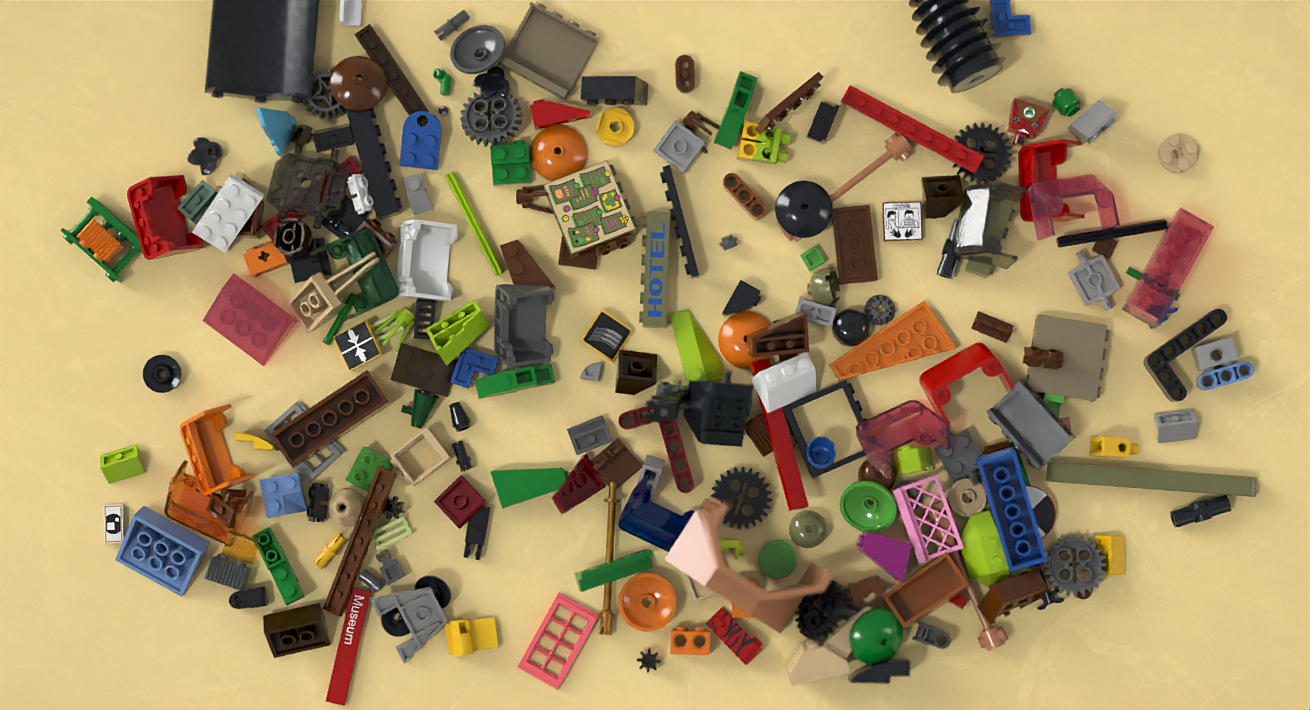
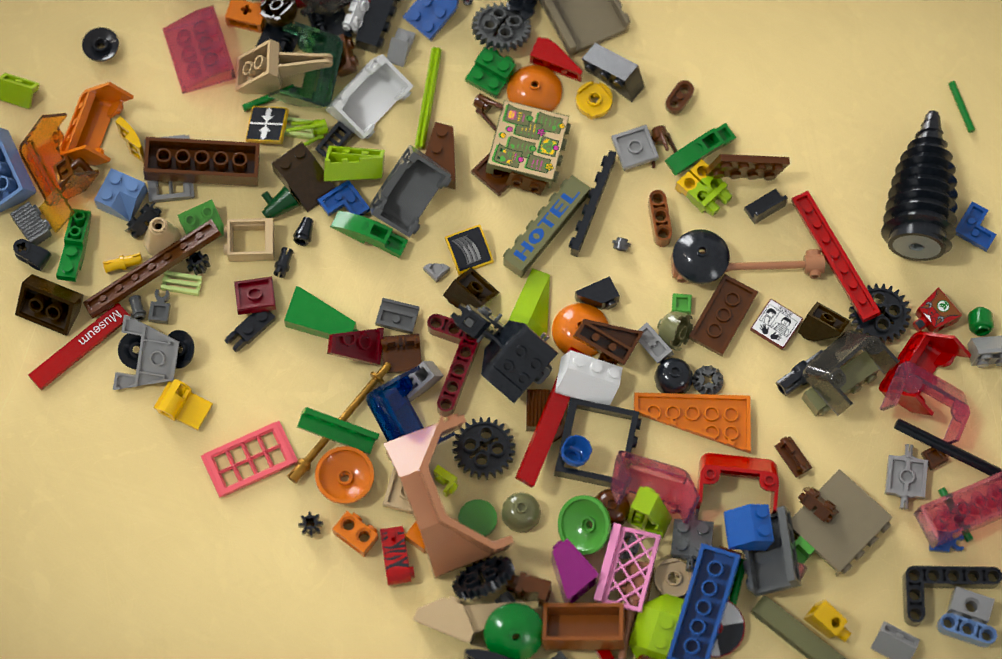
camera: 30 degrees right, 15 degrees down
(1002, 418) = (749, 527): none -> blue slope

